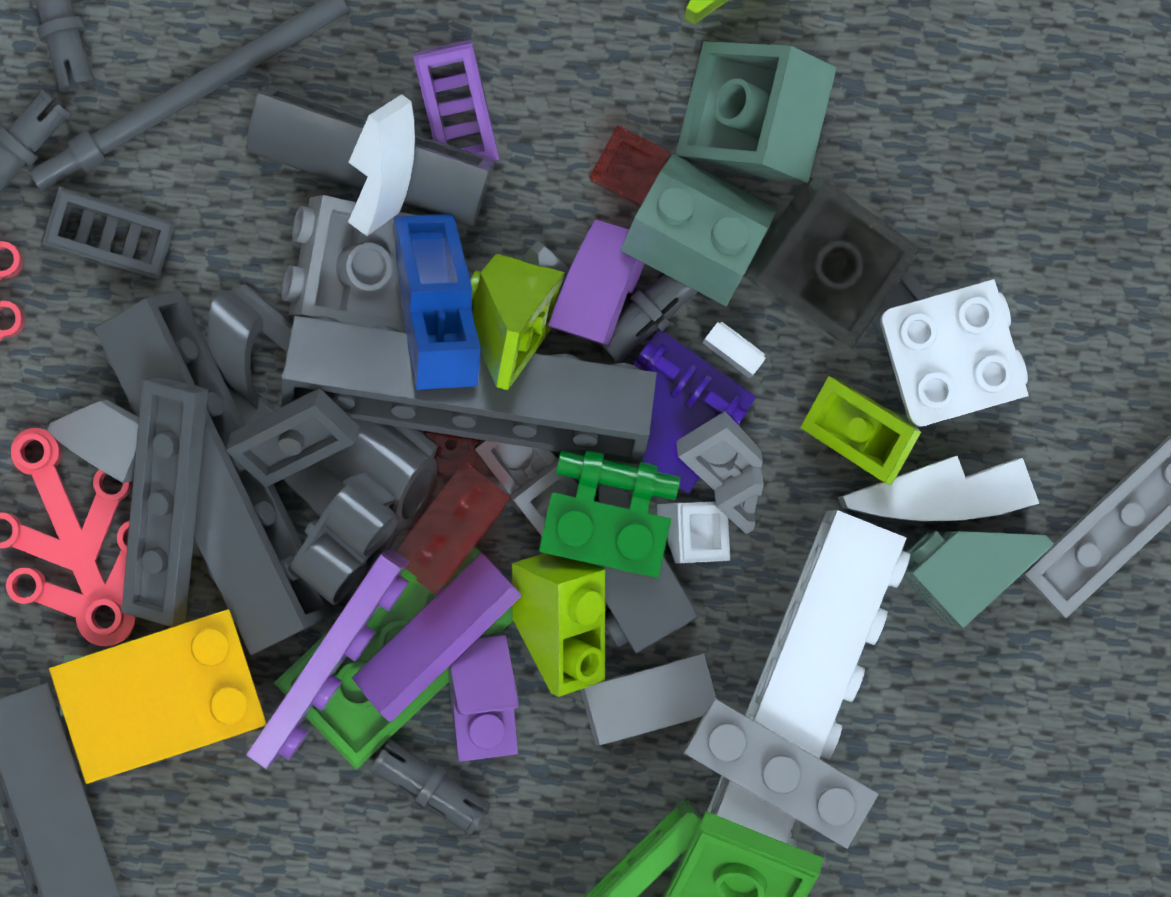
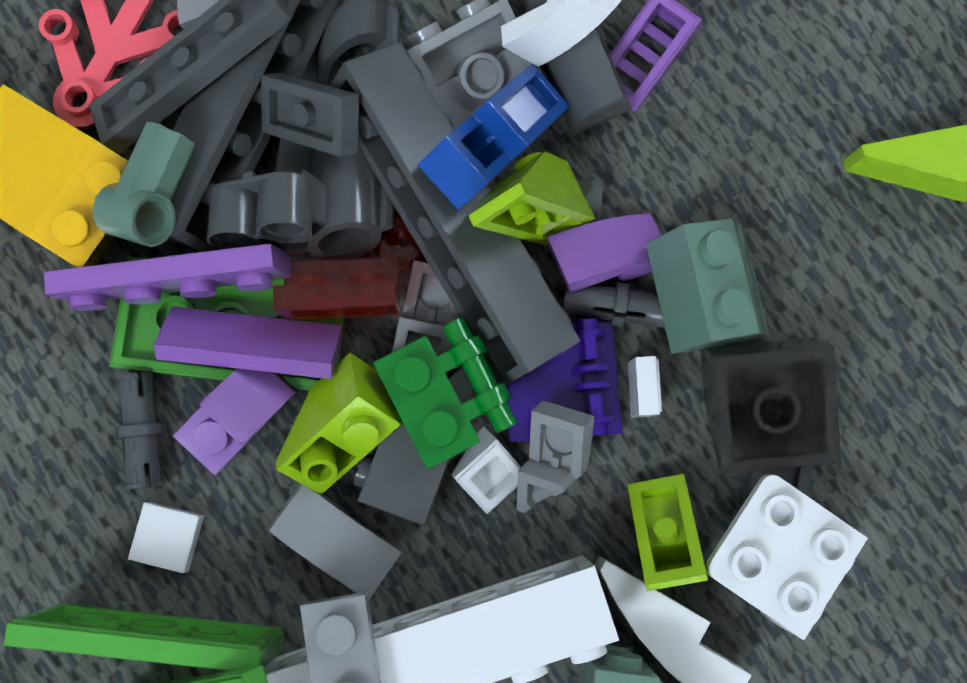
camera: 50 degrees right, 5 degrees down
(257, 632) = (141, 202): none -> sand green piece
(534, 833) = (166, 537): none -> white tile
(629, 165) = (709, 198): clear red plate -> none
(756, 110) = (831, 261): sand green slope -> none

